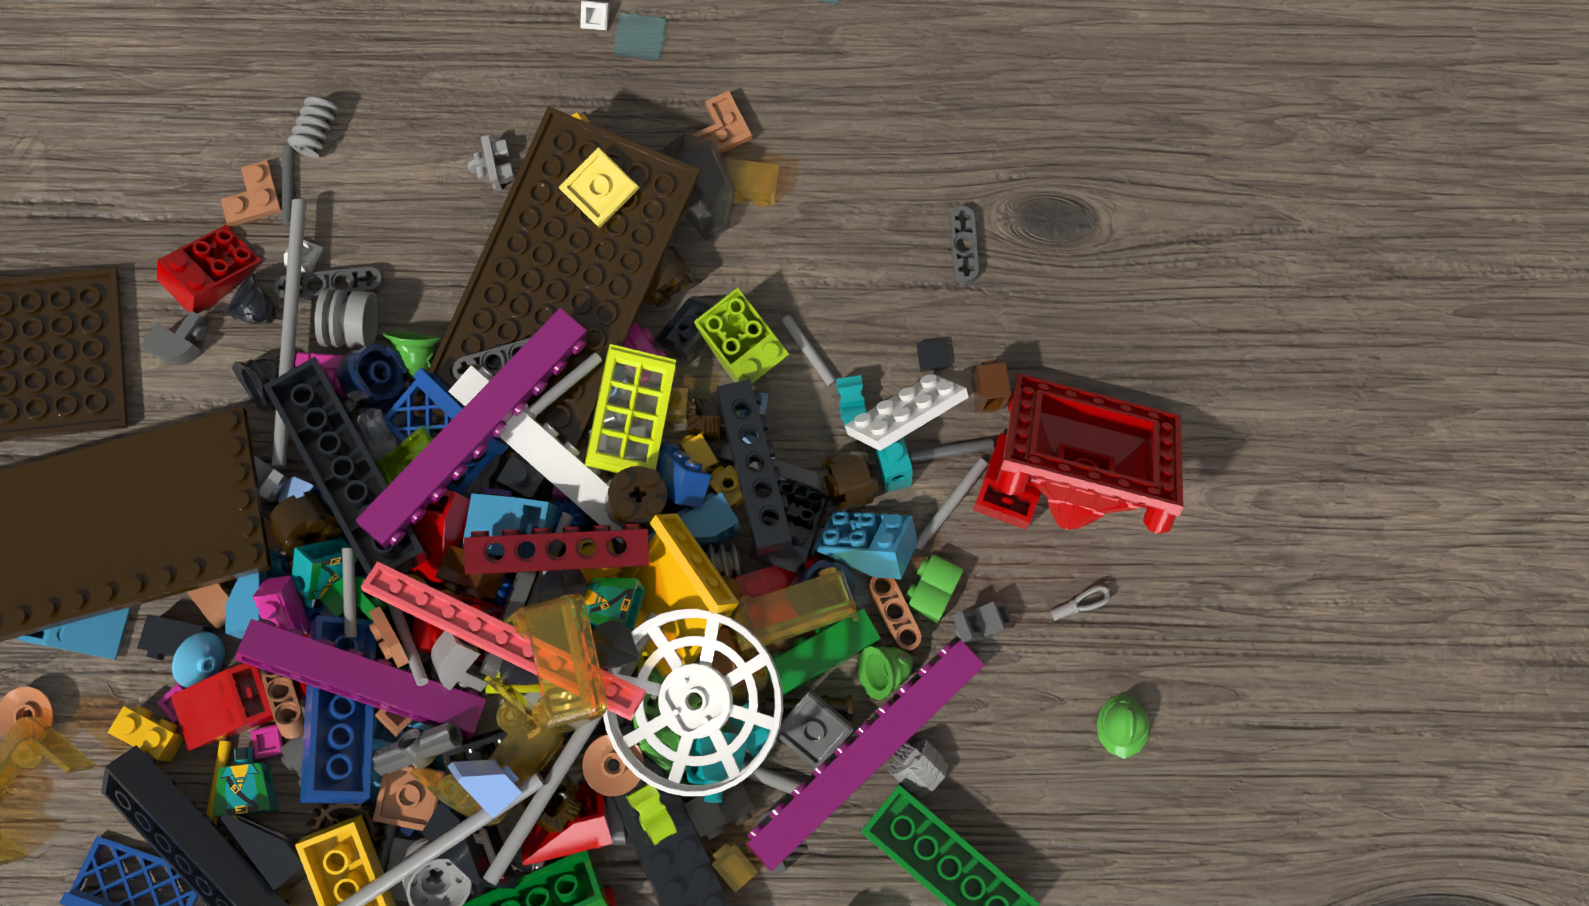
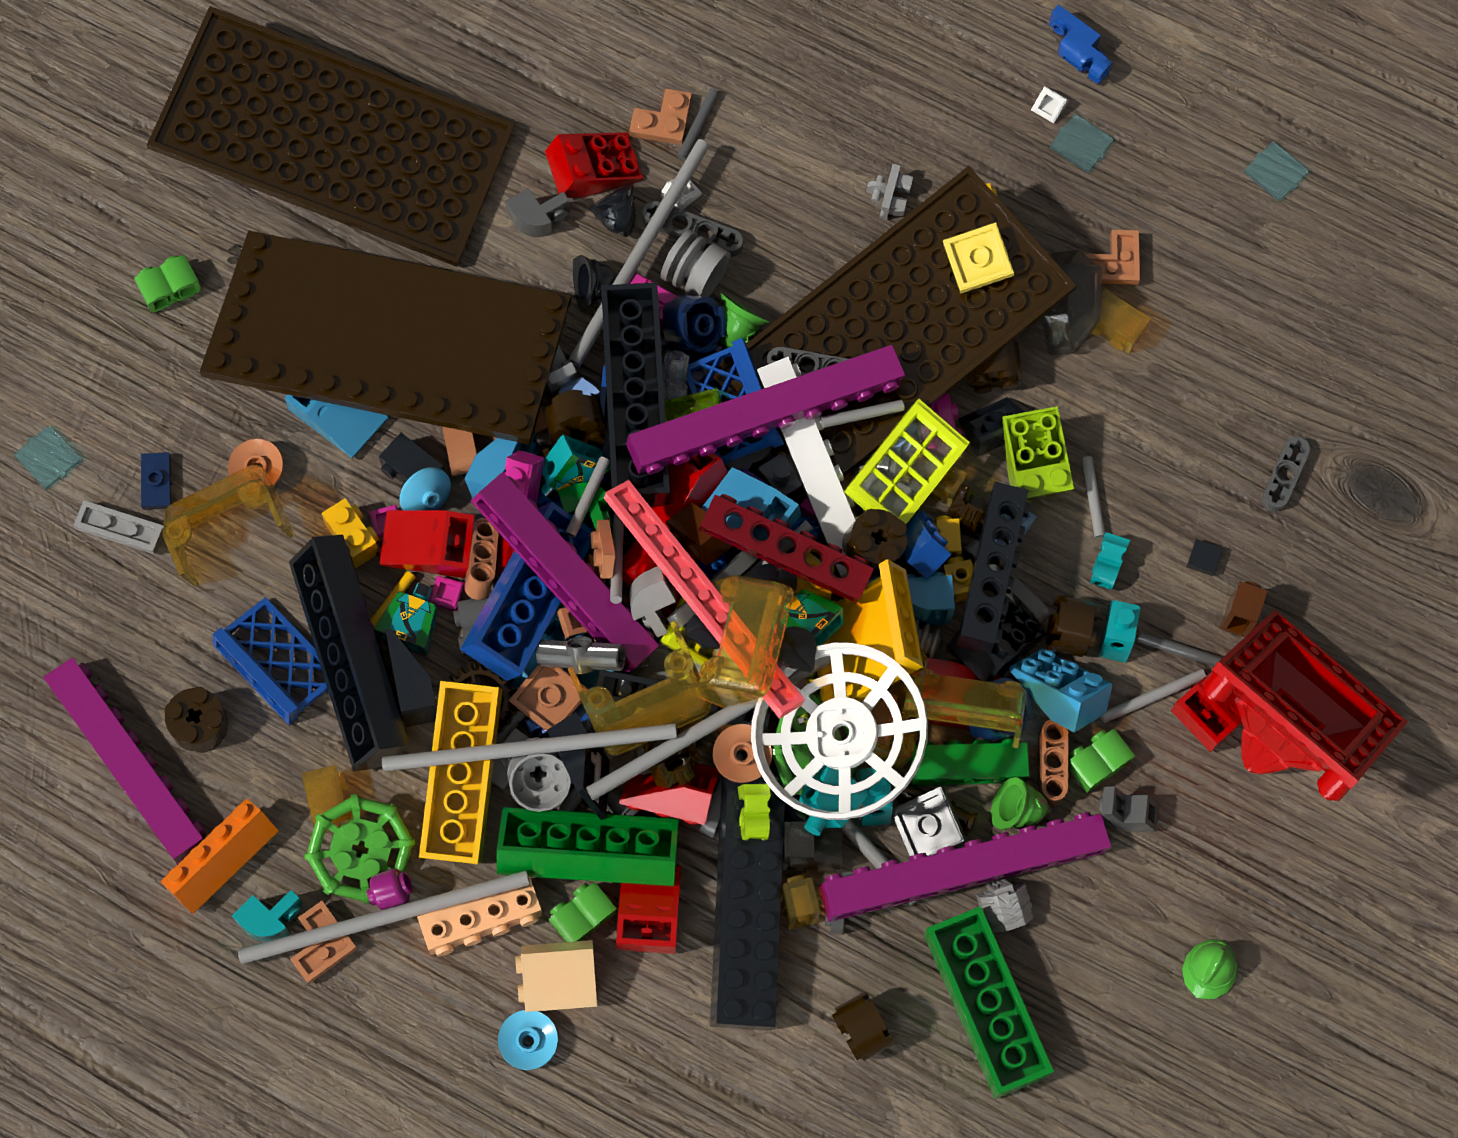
camera: 25 degrees right, 5 degrees down
(310, 126) = (745, 81): light grey piece -> none
(487, 783) = (631, 709): light blue slope -> none
(906, 411) = (1154, 590): white plate -> none
(1072, 606) = (1219, 842): light grey piece -> none

